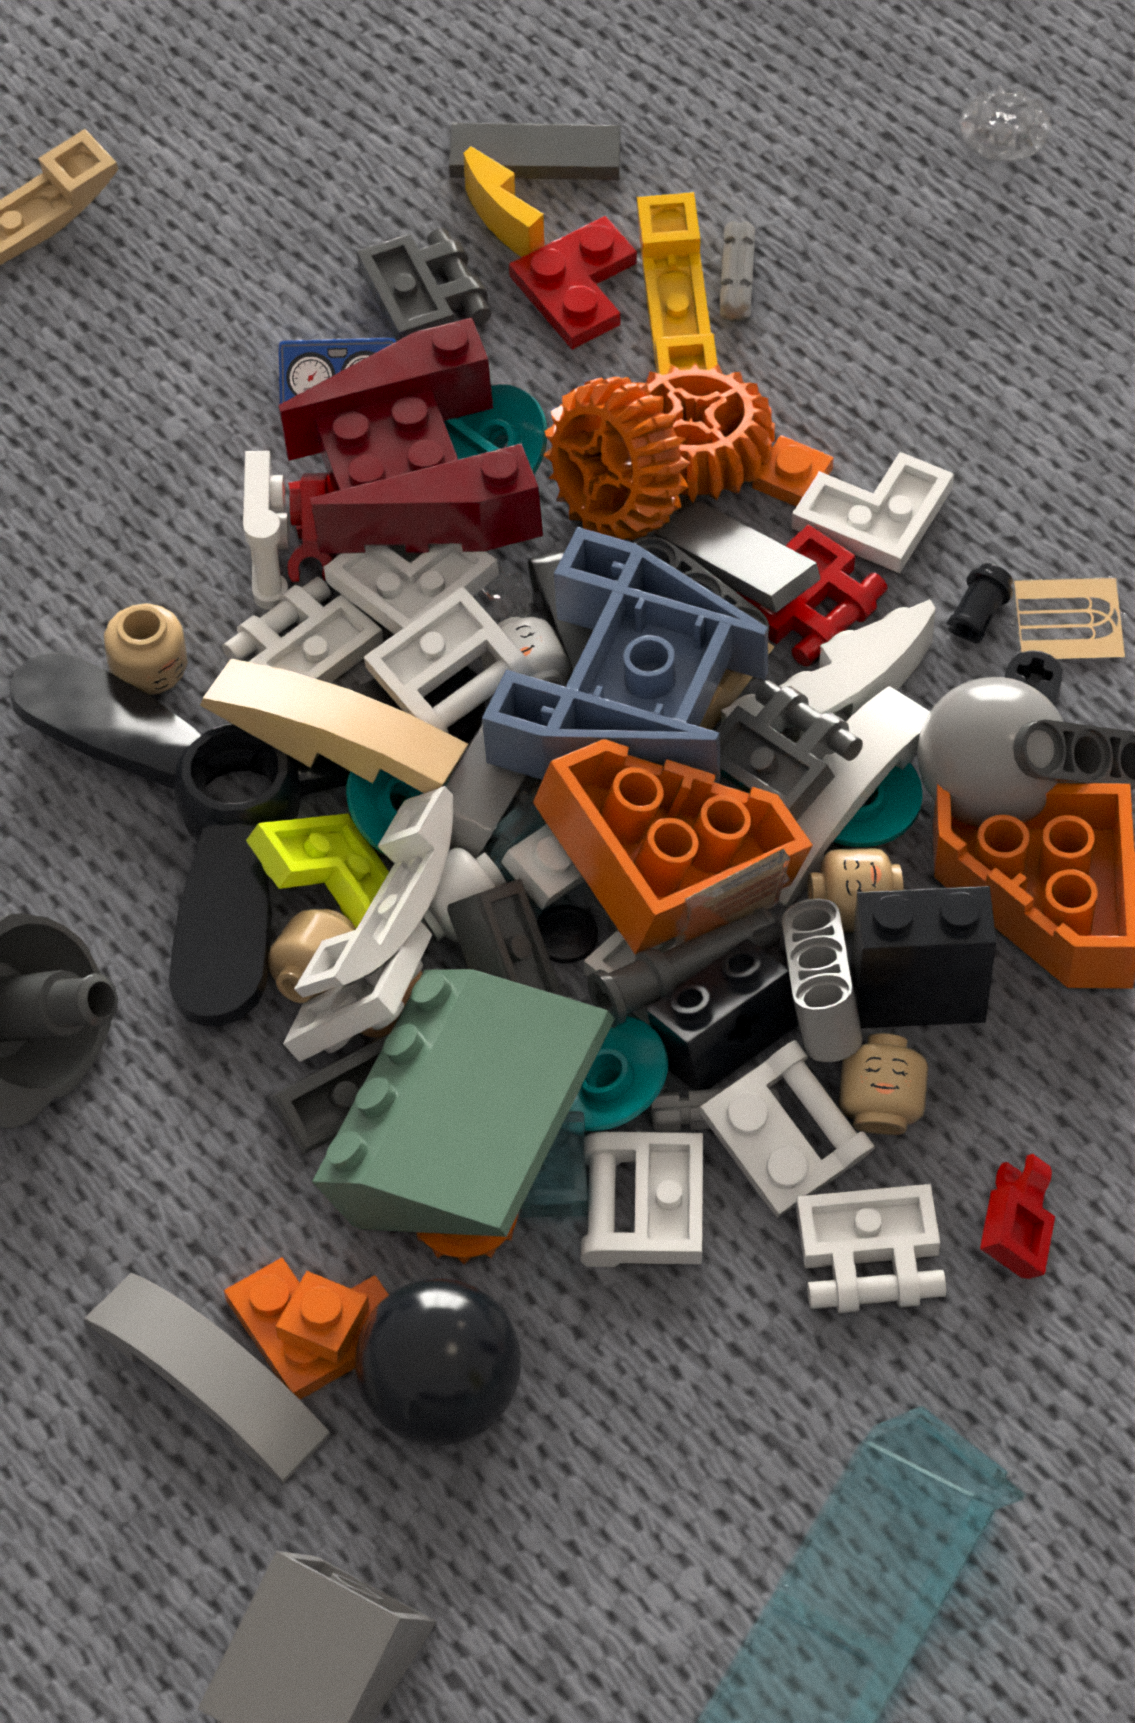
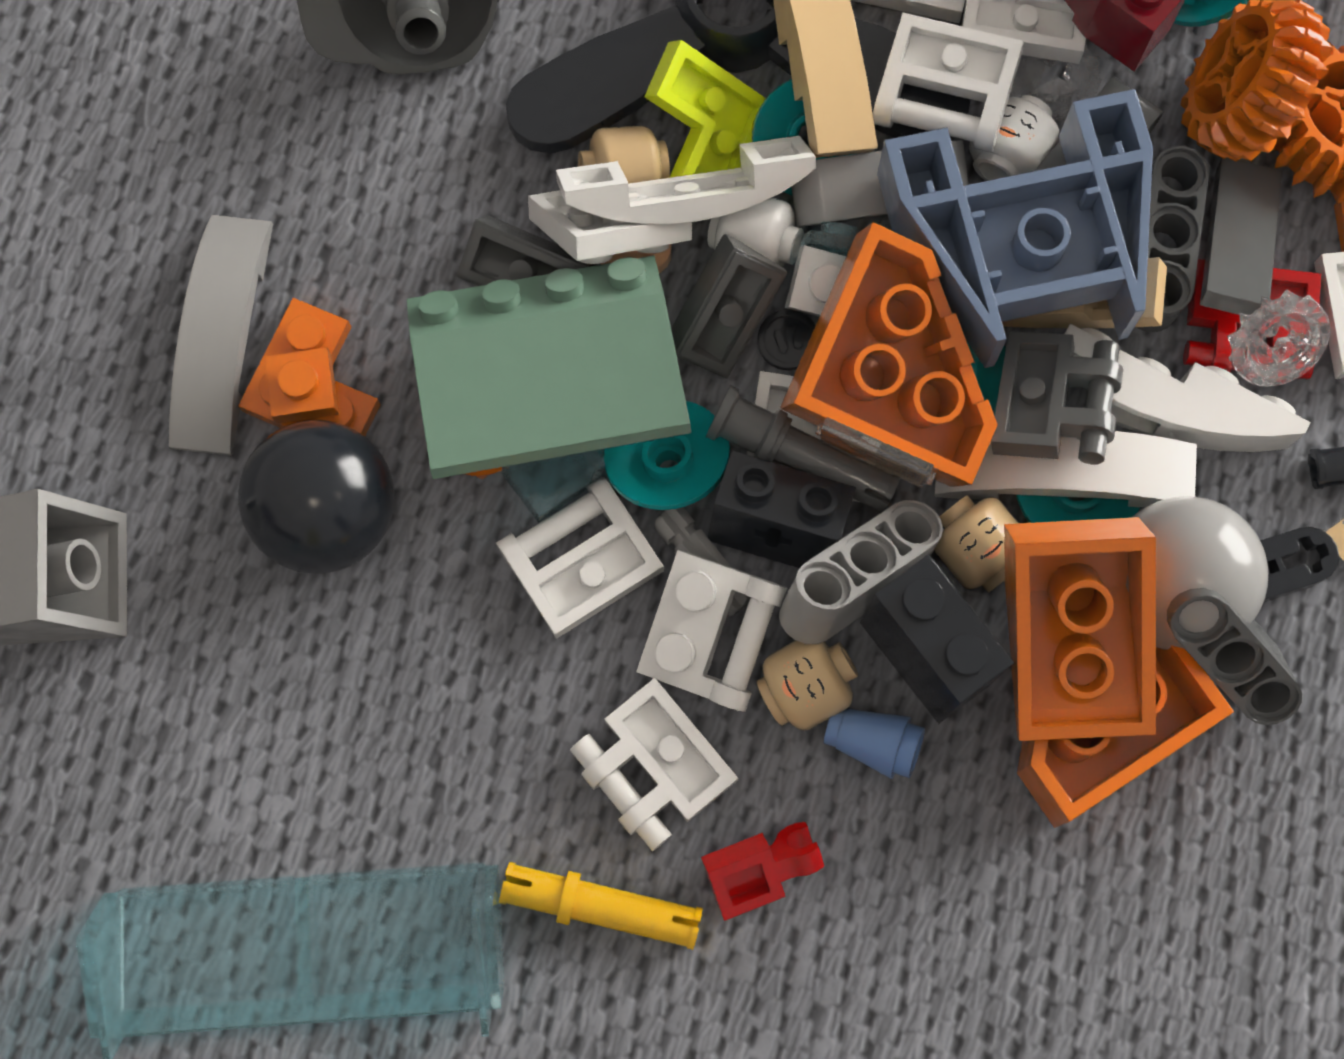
camera: 55 degrees right, 20 degrees up
(863, 576) = (1291, 355): none -> clear gear
(948, 1375) = (600, 905): none -> yellow pin
(970, 1066) = (877, 740): none -> medium blue cone
(989, 833) = (1077, 632): none -> orange slope

